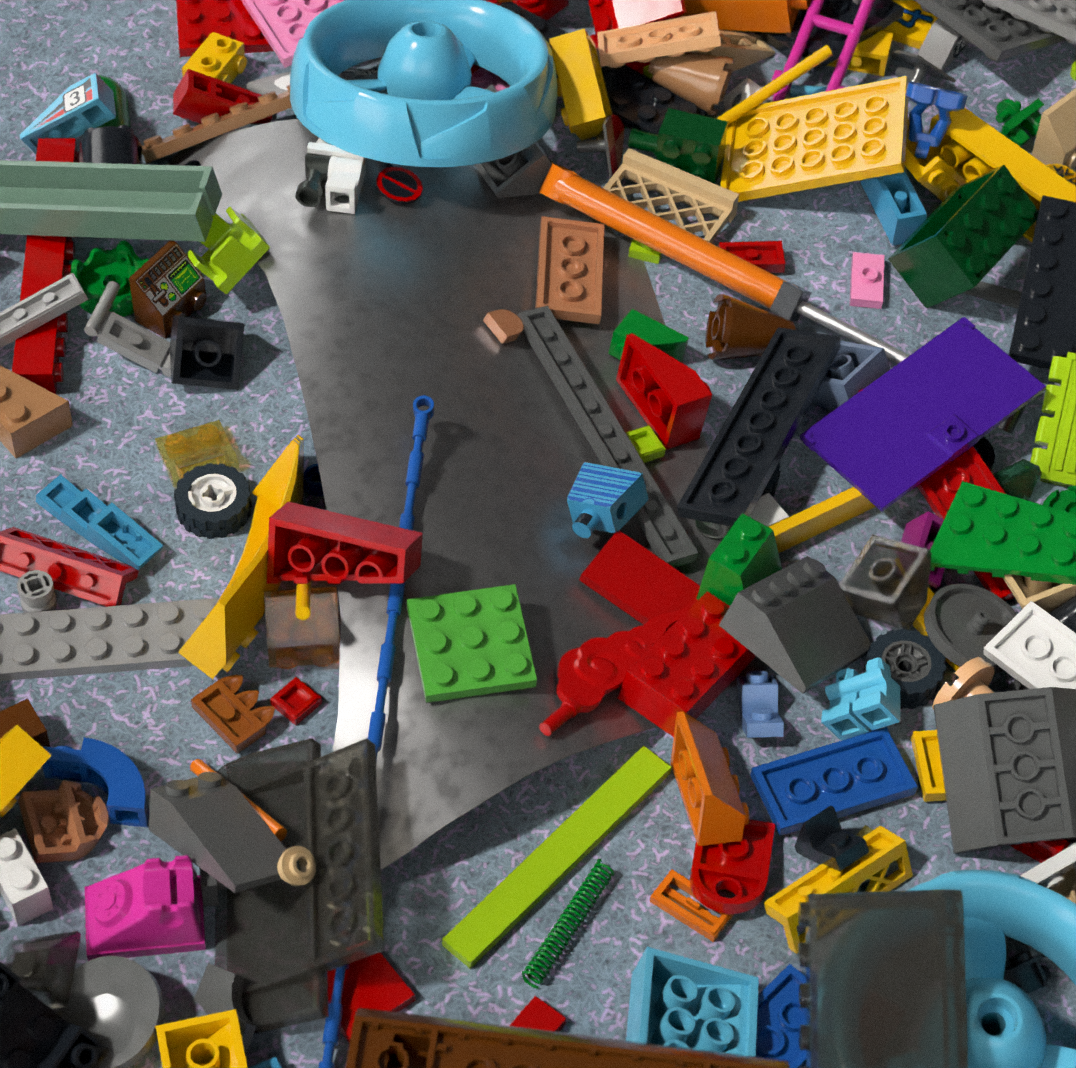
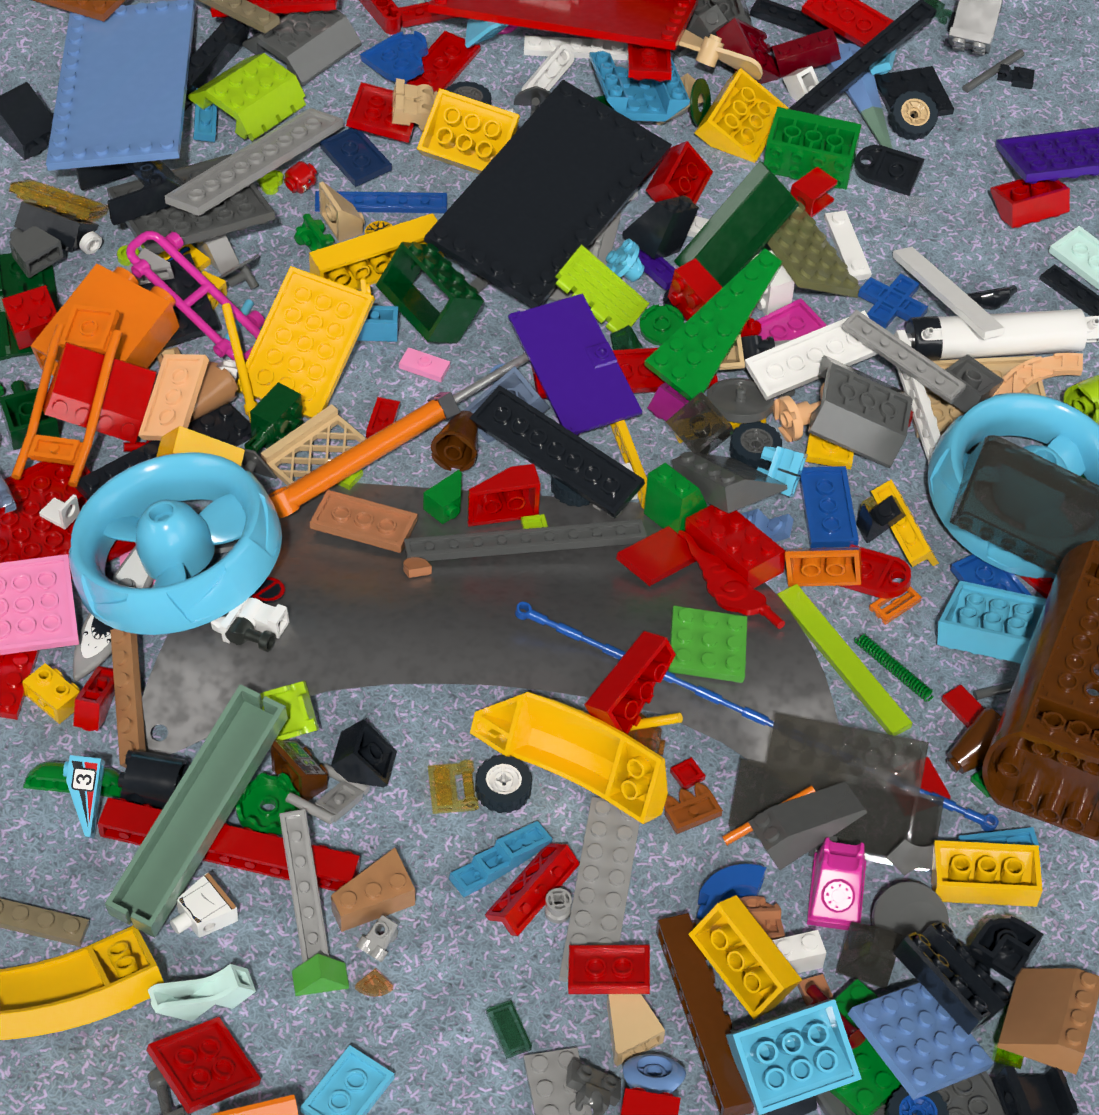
camera: 75 degrees left, 0 degrees up
(288, 869) = (850, 779): tan plate -> none
(605, 498) = (594, 551): dark azure torso -> none
(926, 96) = (322, 255): blue piece -> none

